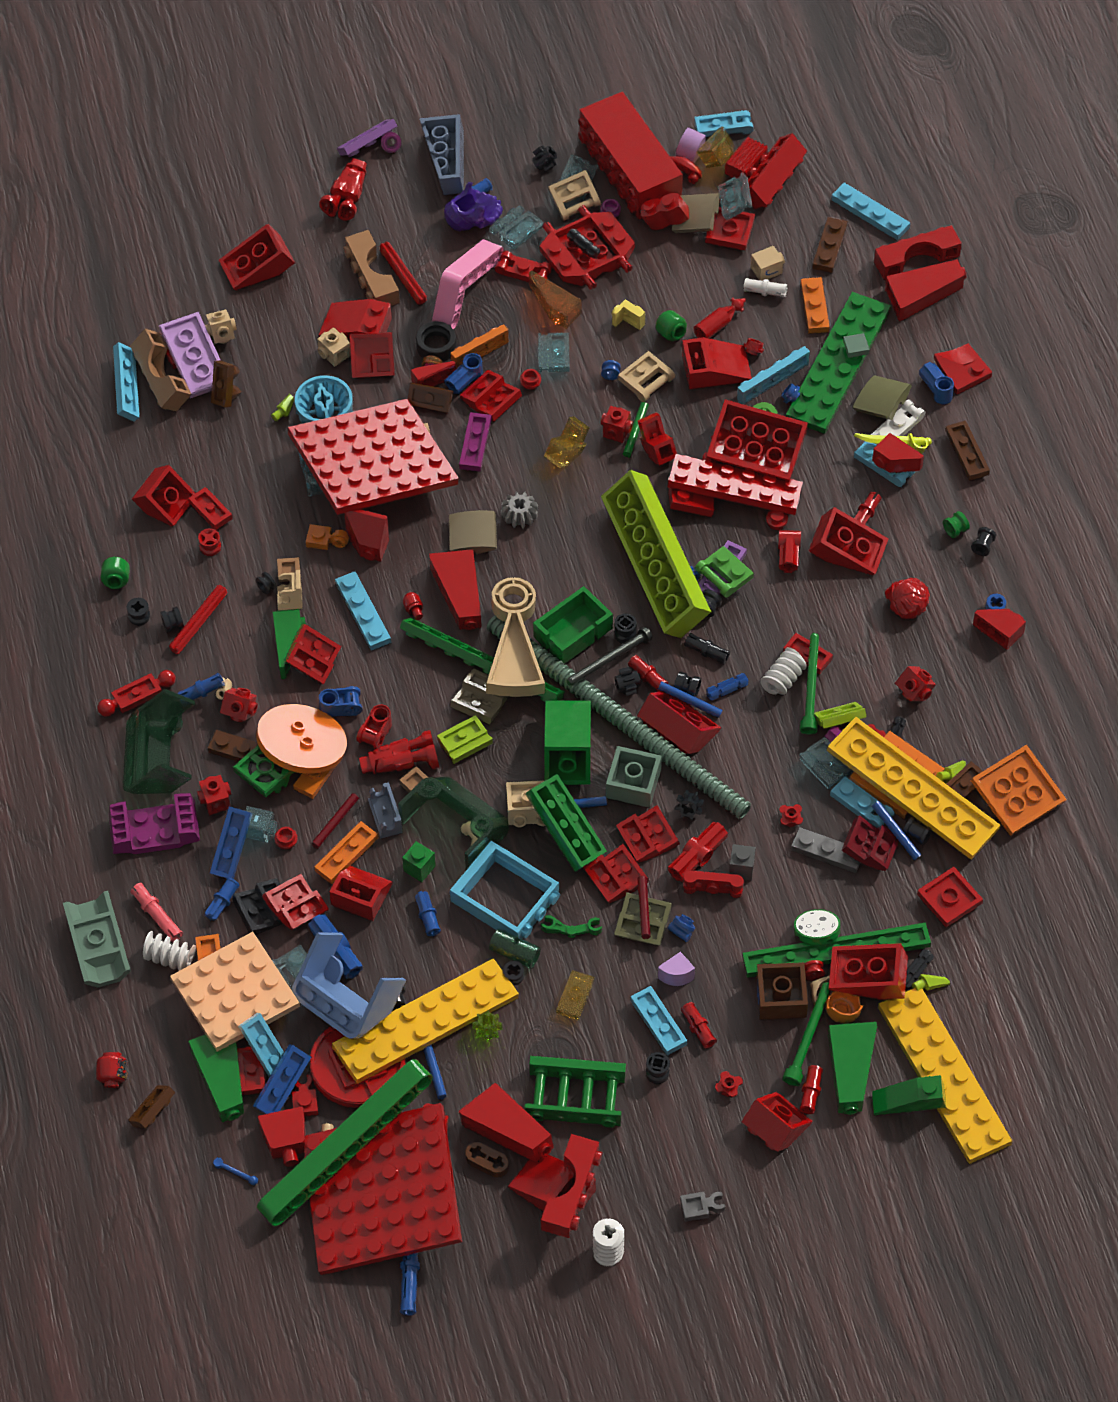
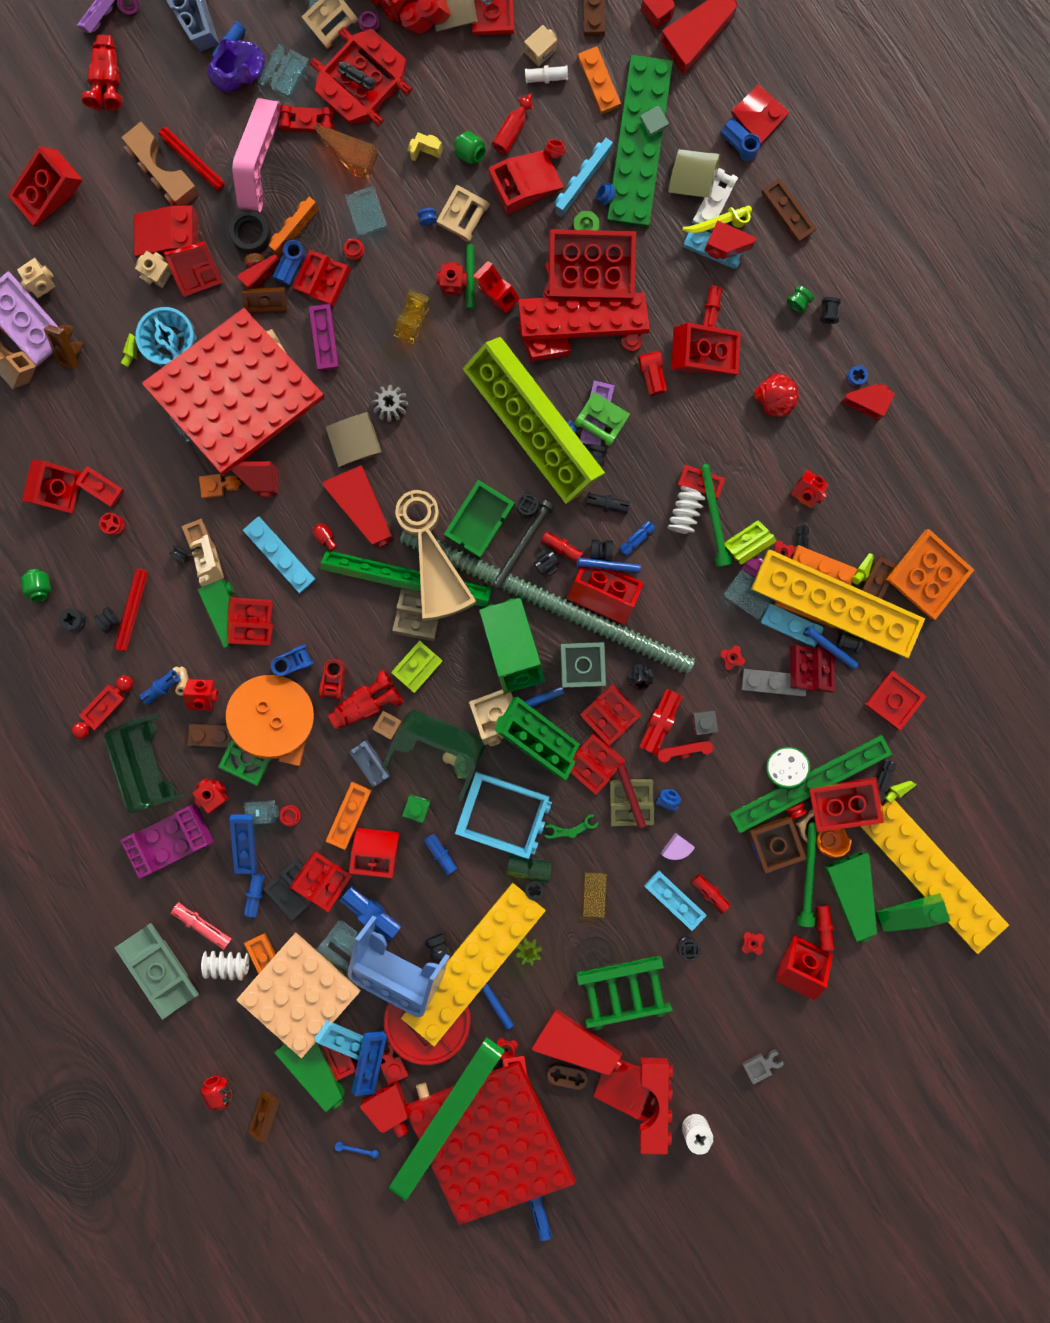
camera: 15 degrees left, 30 degrees up
(335, 820) = (327, 783): dark red bar -> none

